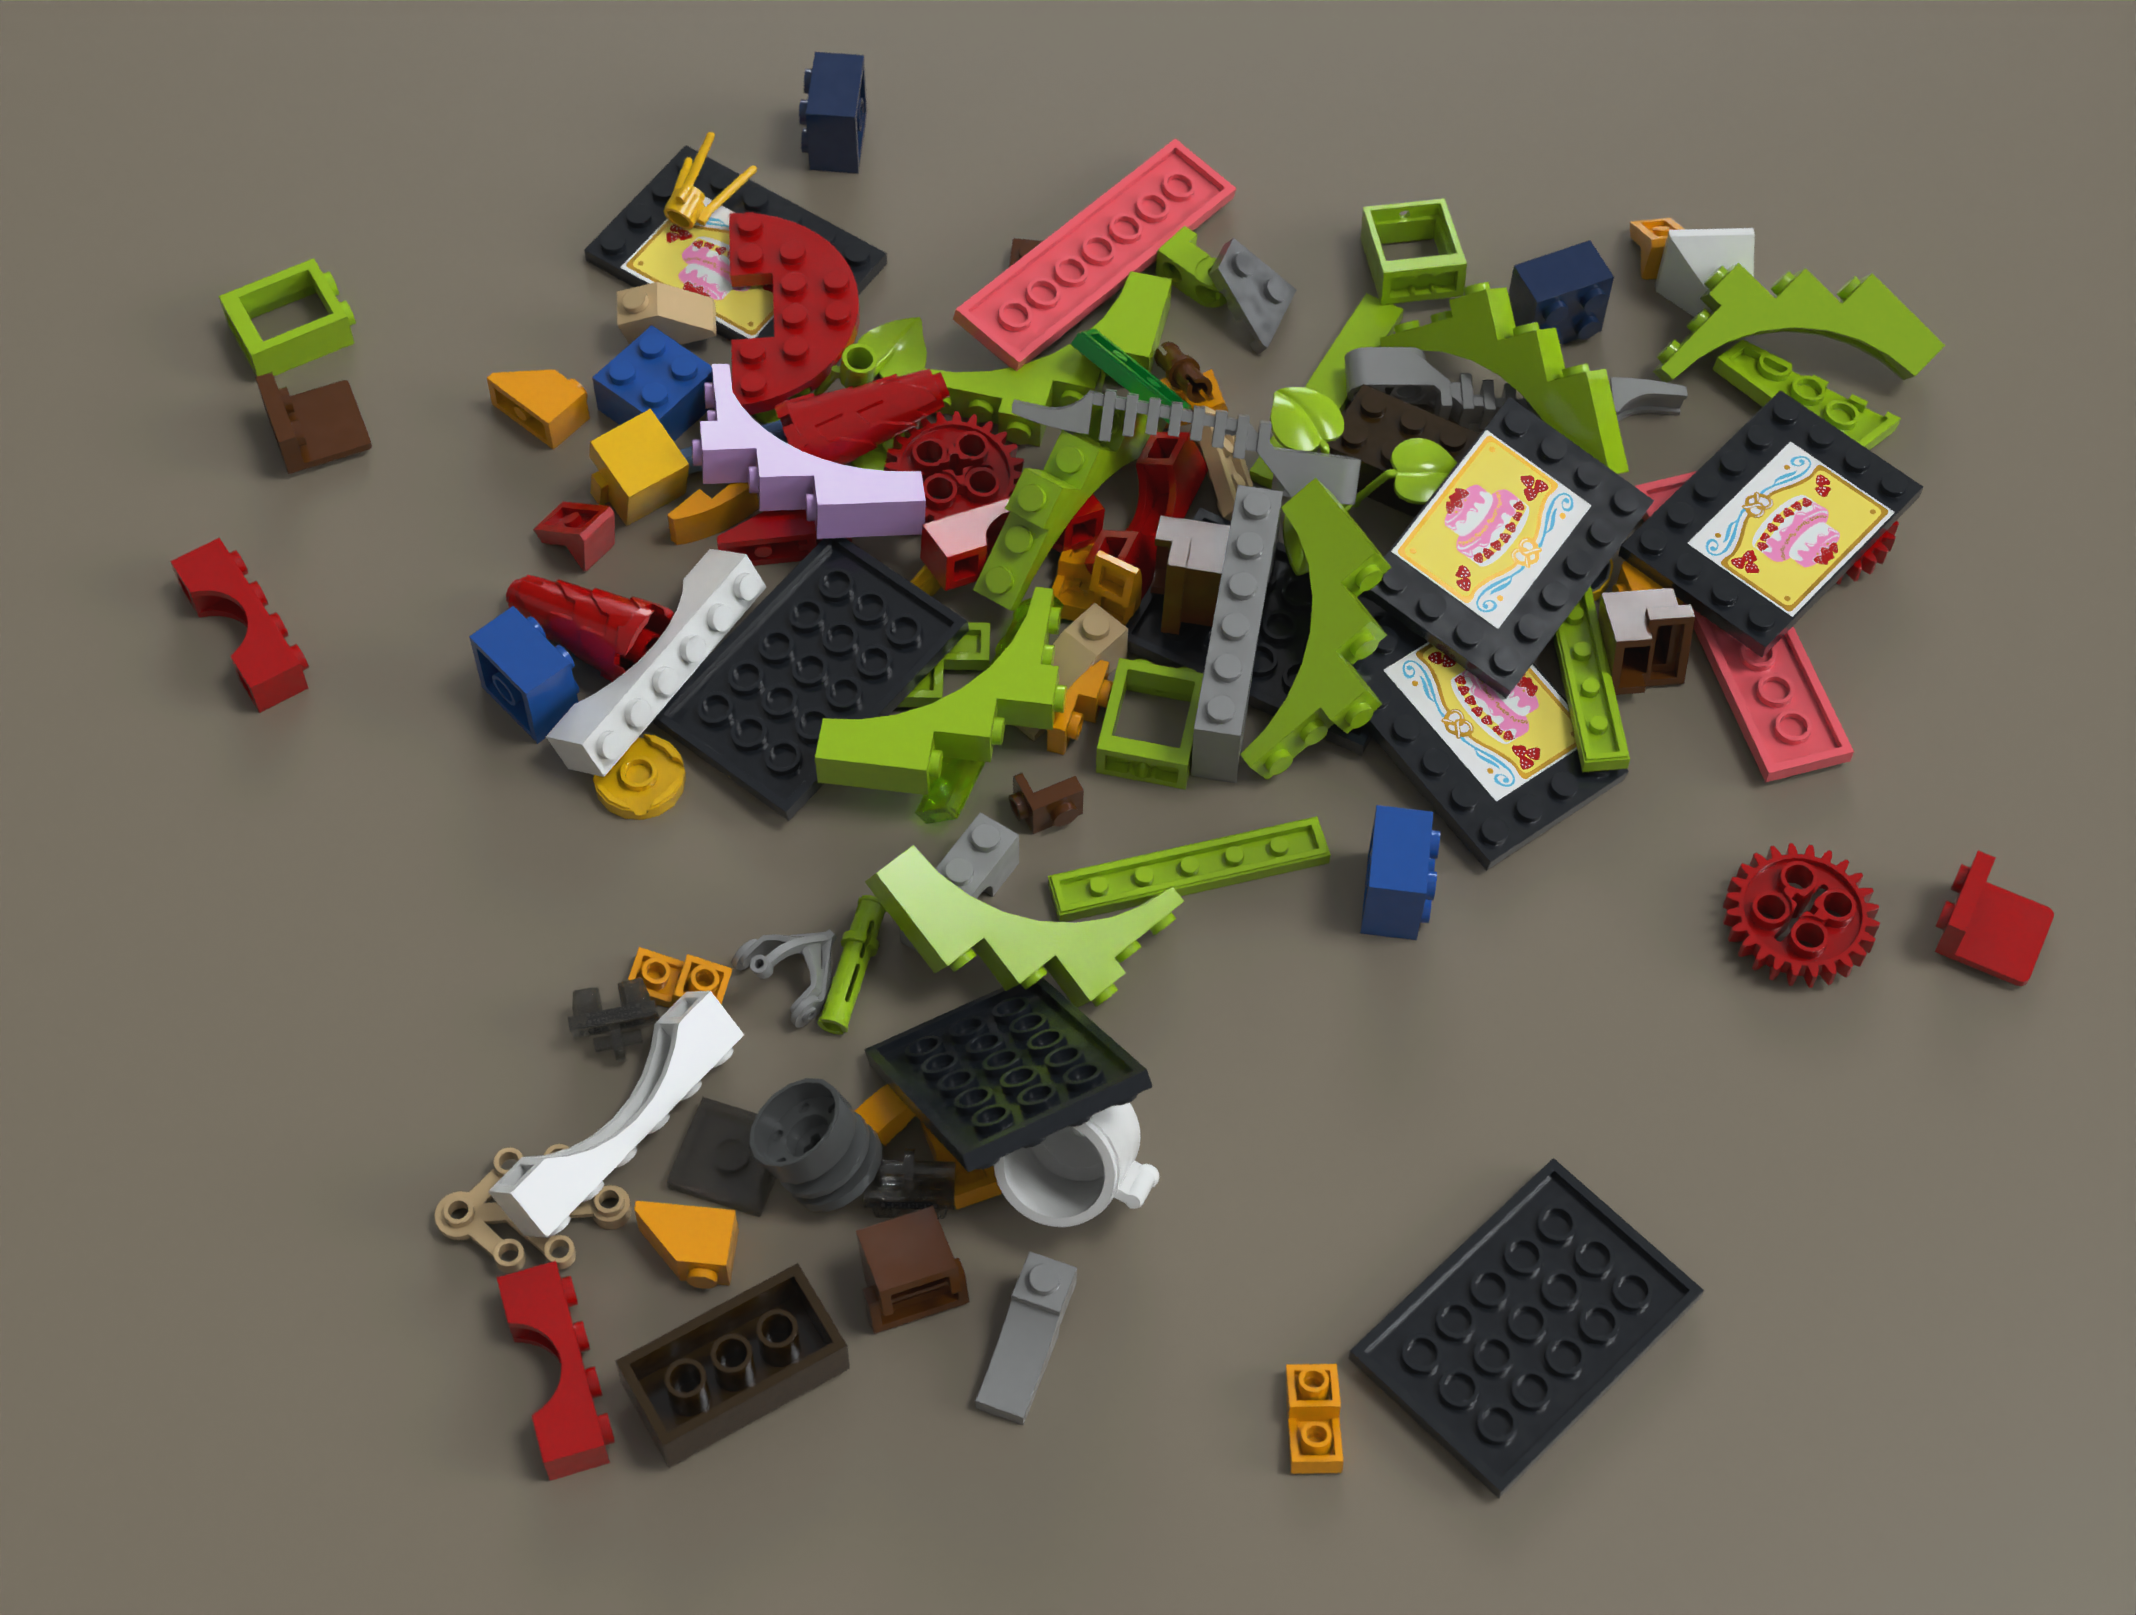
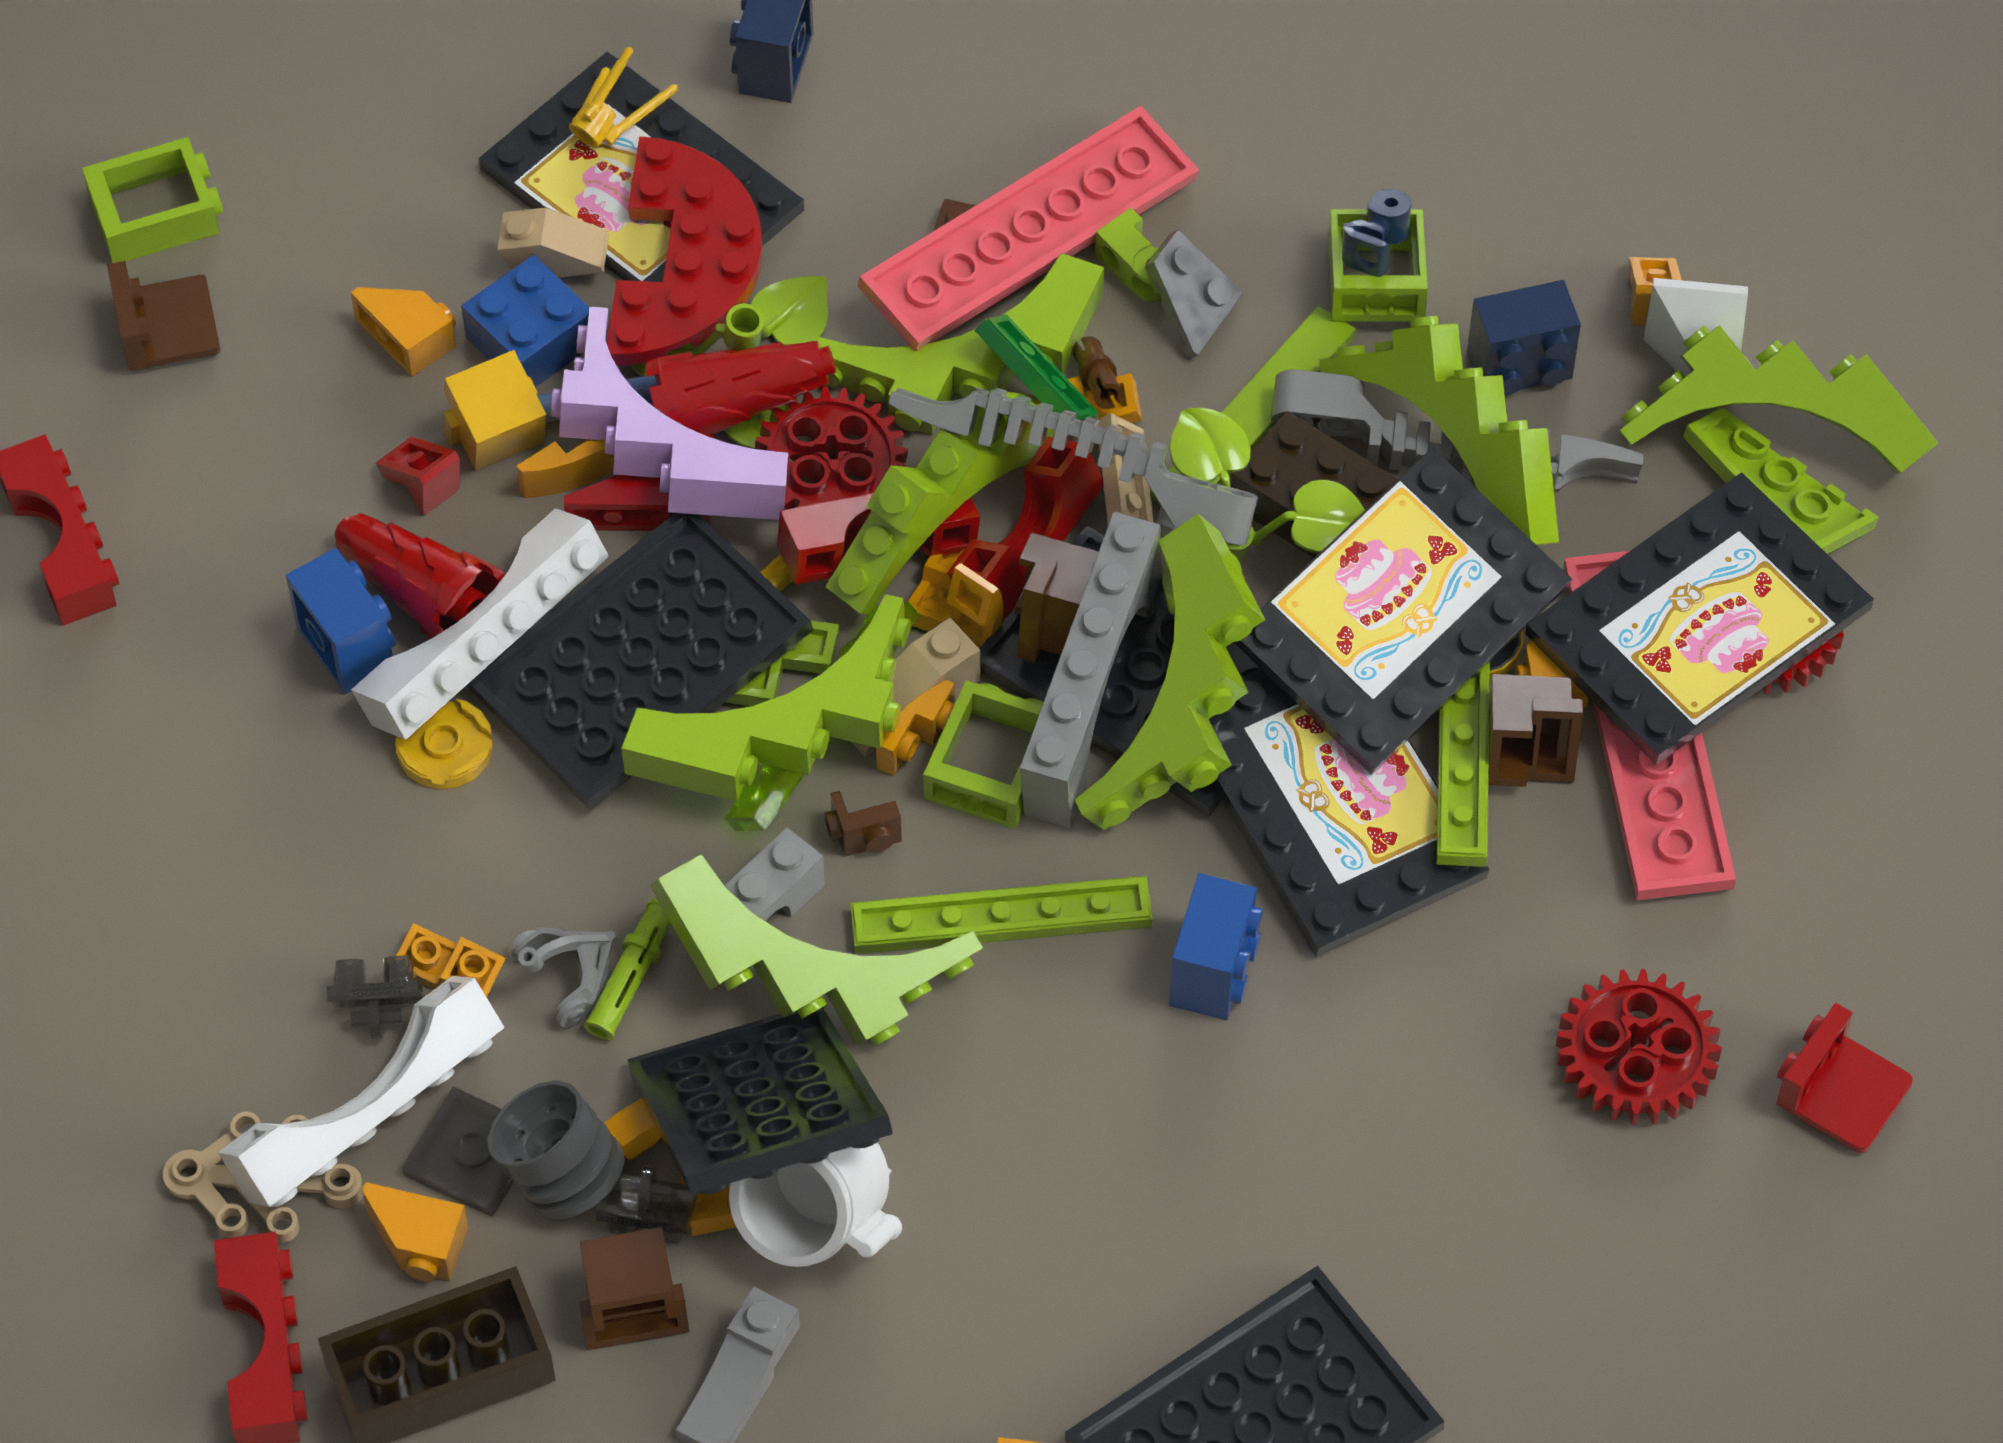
camera: 10 degrees right, 0 degrees up
(1416, 216) = (1385, 225): none -> dark blue leg

